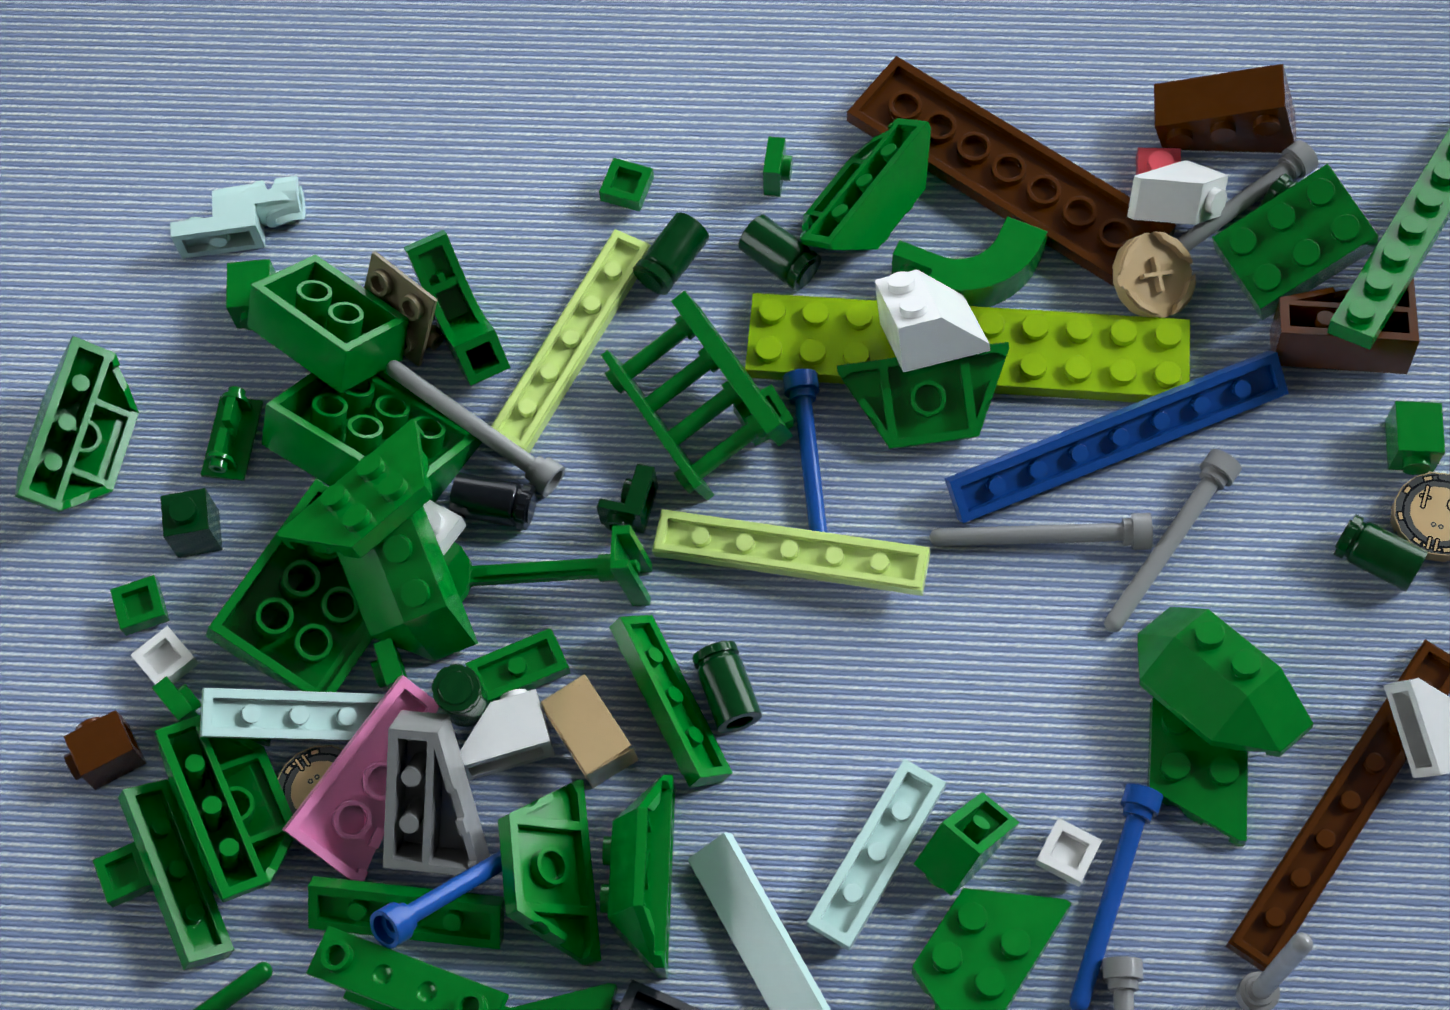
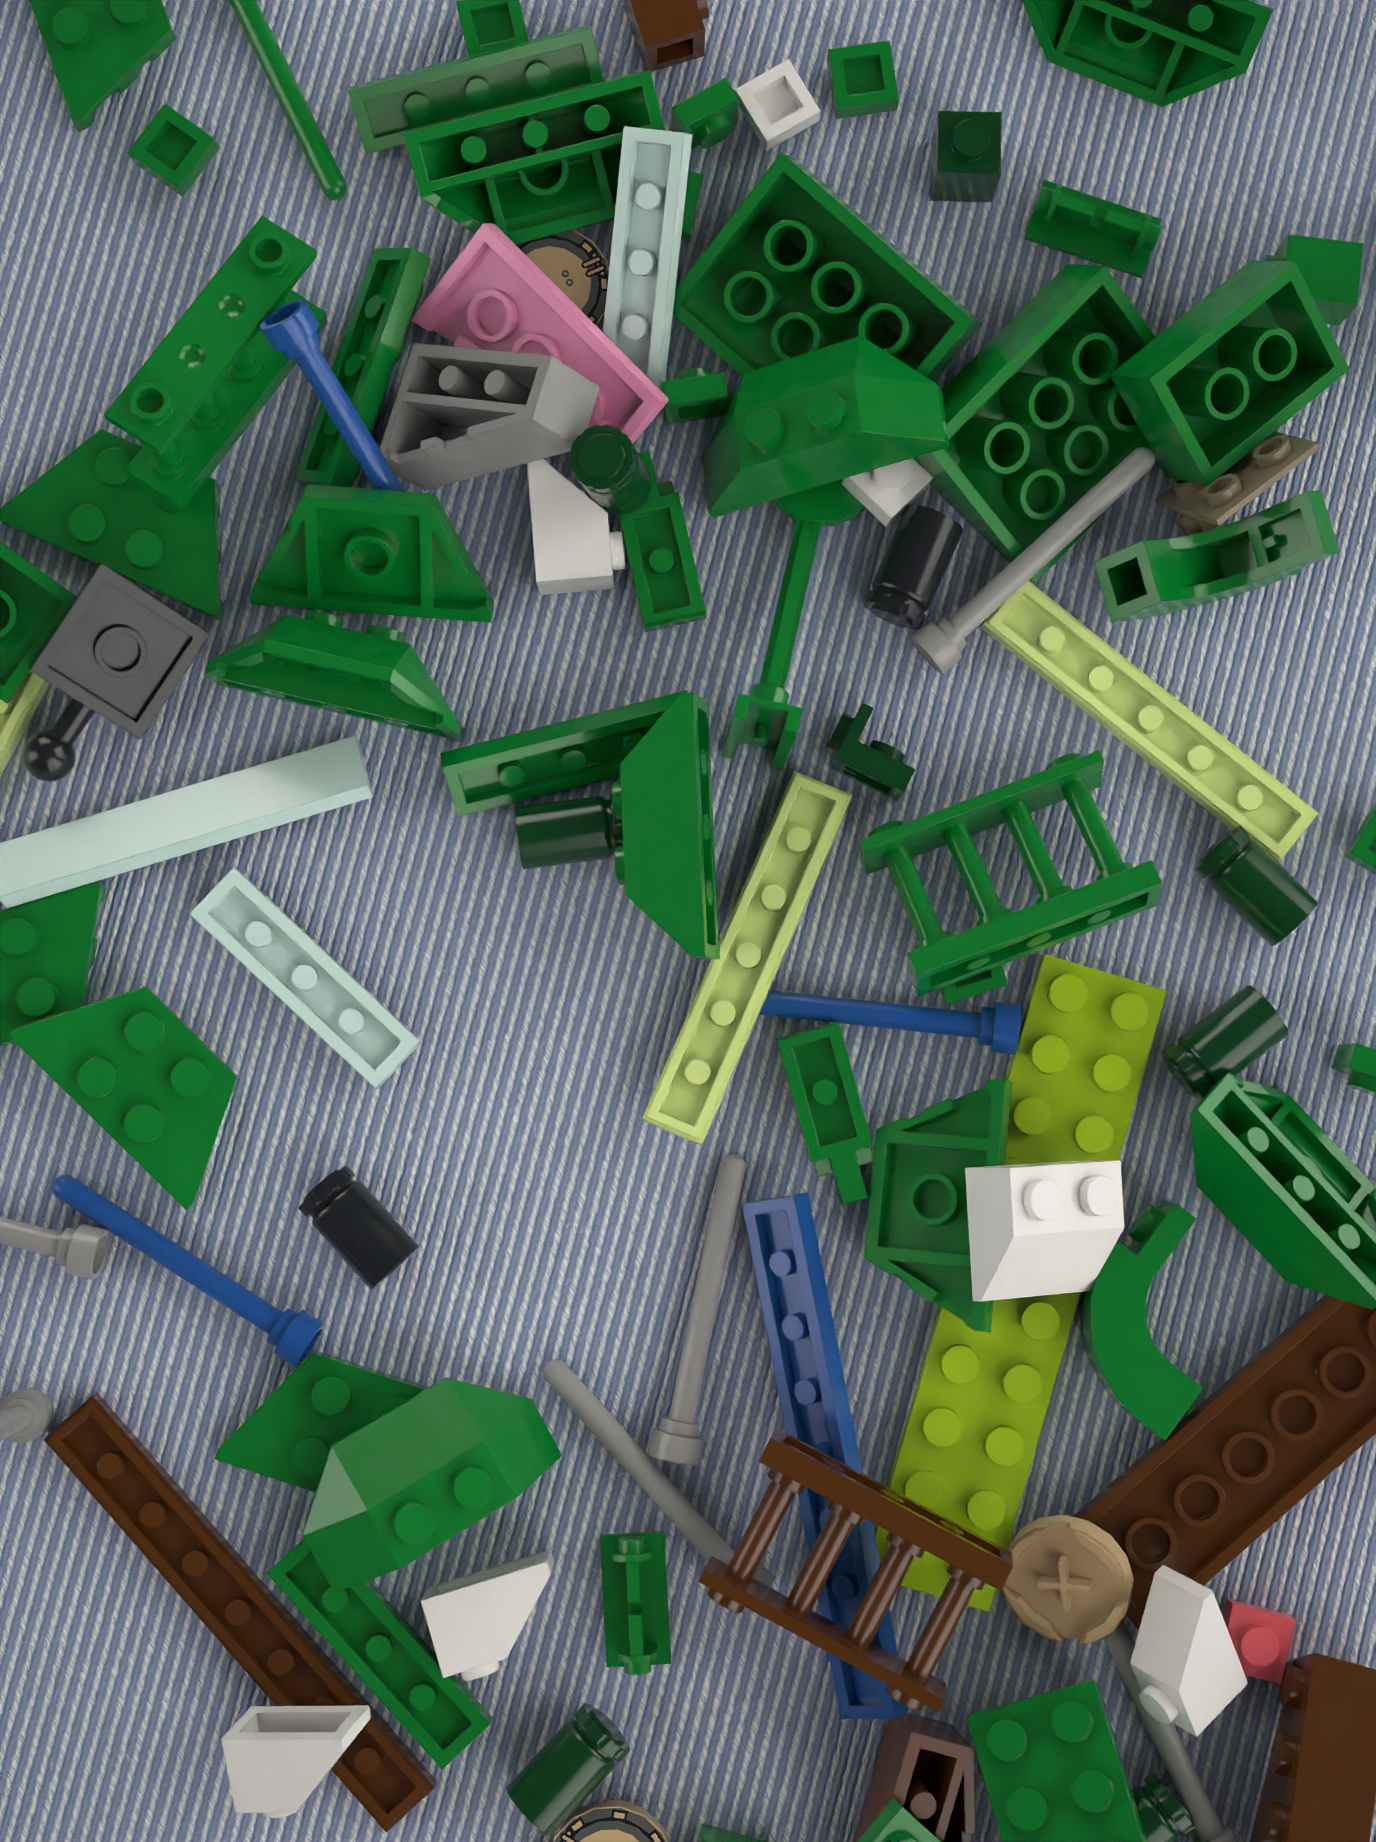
camera: 95 degrees right, 20 degrees up
(366, 500) = (912, 382): green wing -> none
(589, 731) = (550, 639): tan piece -> none
(713, 603) = (669, 827): none -> green wedge
(882, 481) = (828, 1106): none -> green hinge
(965, 843) = (291, 1096): green slope -> none
(1050, 773) = (358, 1226): none -> black piece
(1068, 852) = (251, 1224): white plate -> none
(1144, 397) = (911, 1533): none -> reddish brown fence
(1254, 537) = (635, 1601): none -> green hinge
(1293, 627) = (483, 1613): none -> white slope
(1343, 694) = (385, 1656): none -> green plate

